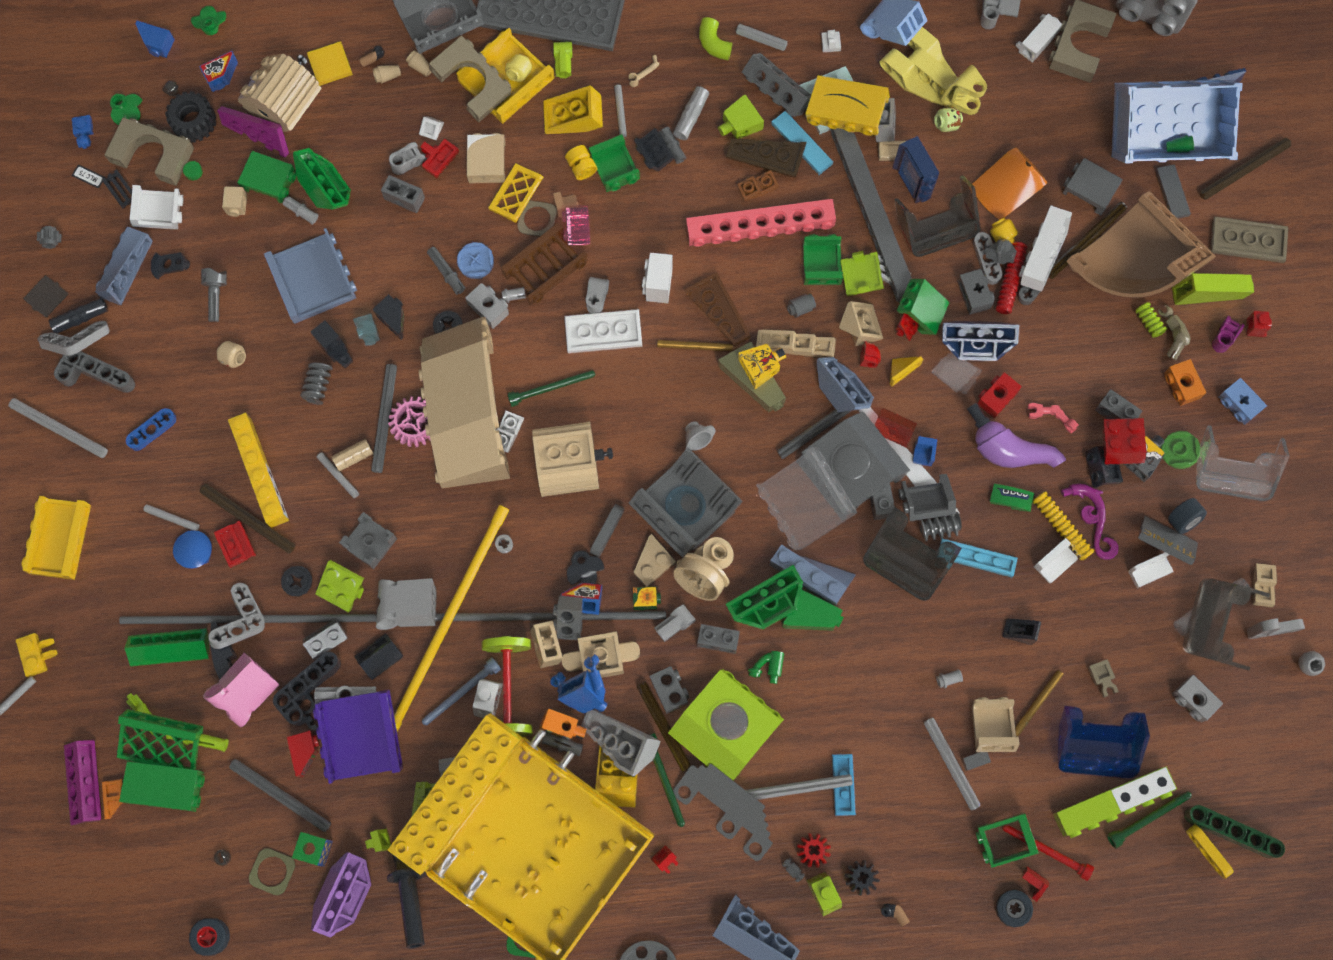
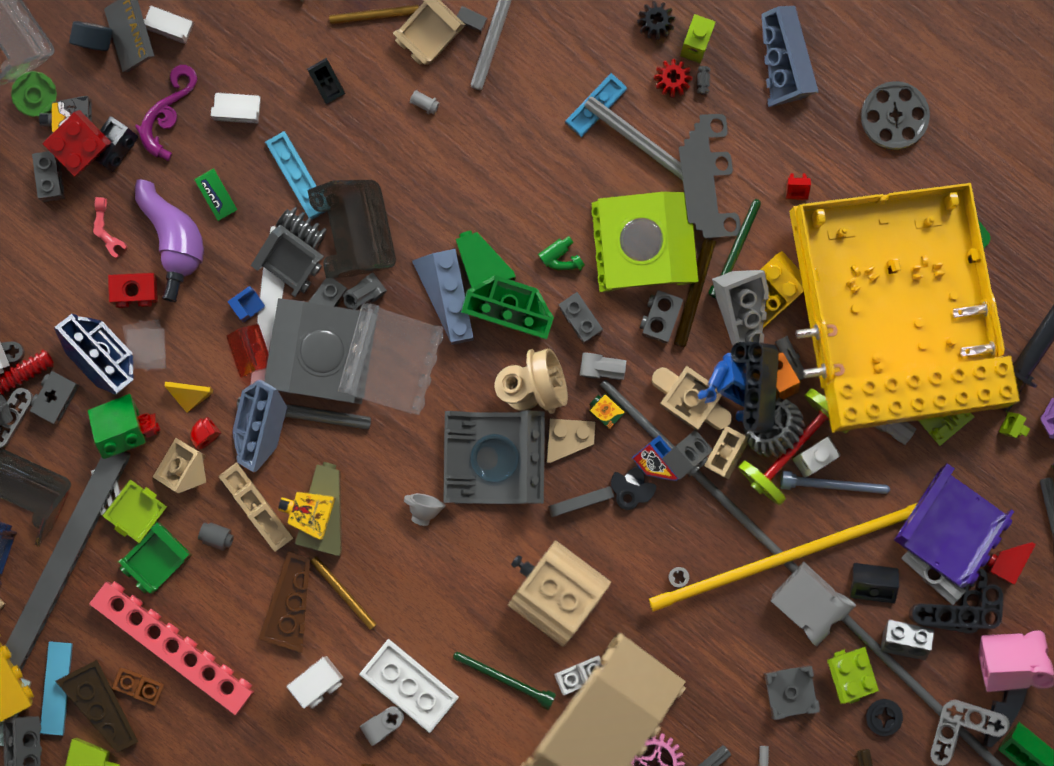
camera: 135 degrees left, 10 degrees up
(531, 699) = (786, 429): none -> dark grey gear
(566, 702) = (760, 383): none -> black beam
(862, 529) = (367, 290): none -> dark grey piece
(1063, 525) = (199, 129): yellow piece -> none

